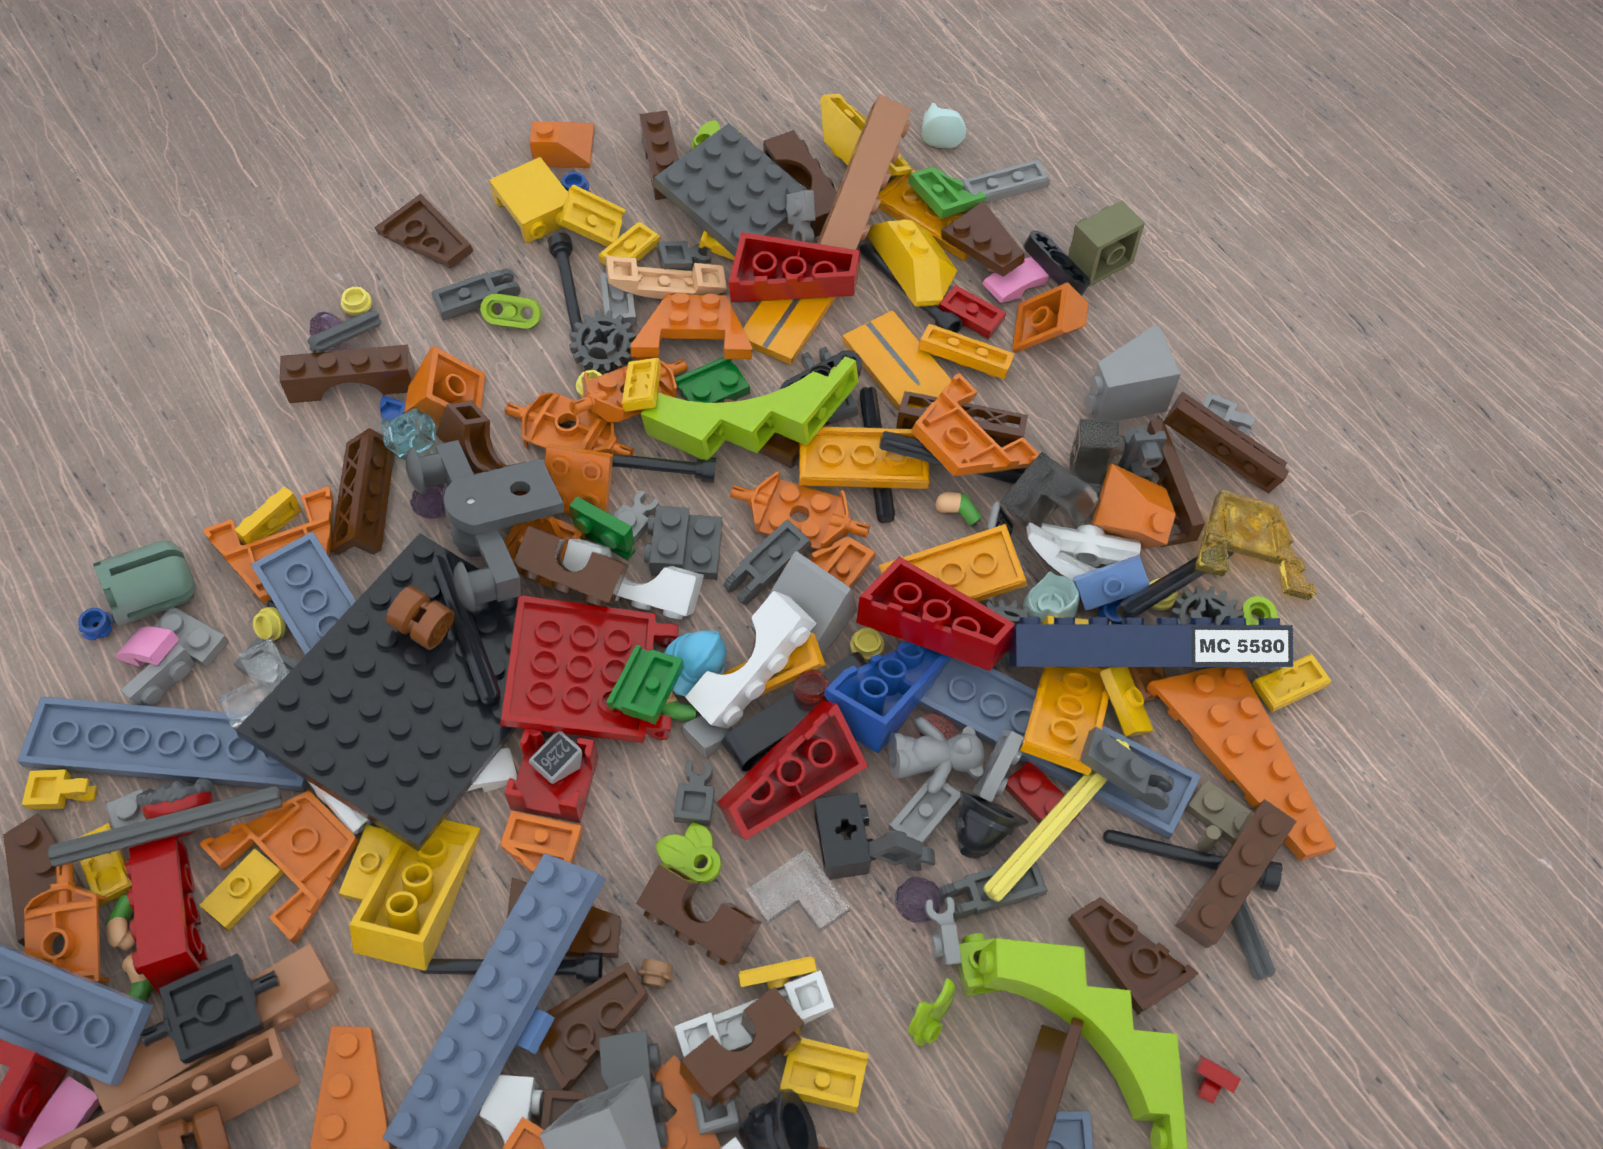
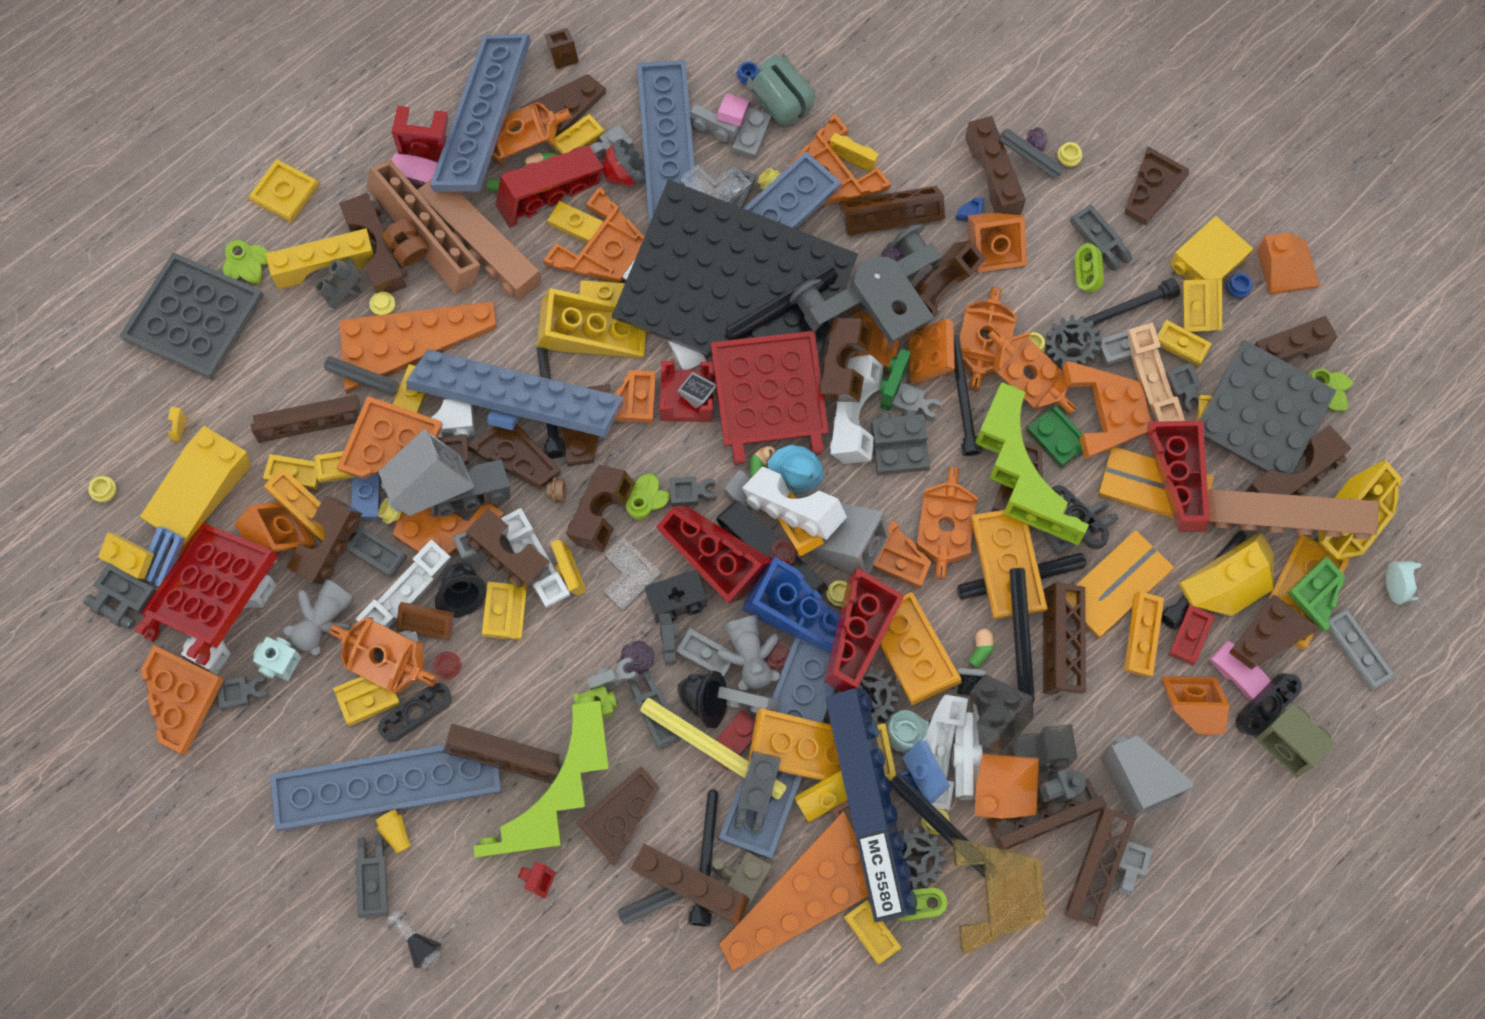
camera: 80 degrees right, 10 degrees up
(52, 787) = (622, 90): yellow plate -> none
(164, 826) = (601, 163): dark grey axle -> none
(210, 1009) = (485, 225): black plate -> none
(408, 431) = (949, 224): clear light blue brick -> none
(415, 614) = (778, 265): dark orange wheel -> none
(641, 384) = (1029, 377): yellow plate -> none
(645, 684) = (762, 434): green plate -> none
(767, 561) = (896, 506): dark grey hinge -> none
(800, 213) = (1255, 470): light grey plate -> none
(926, 1023) = (547, 674): lime plate -> none
(960, 441) = (1031, 631): orange wing -> none

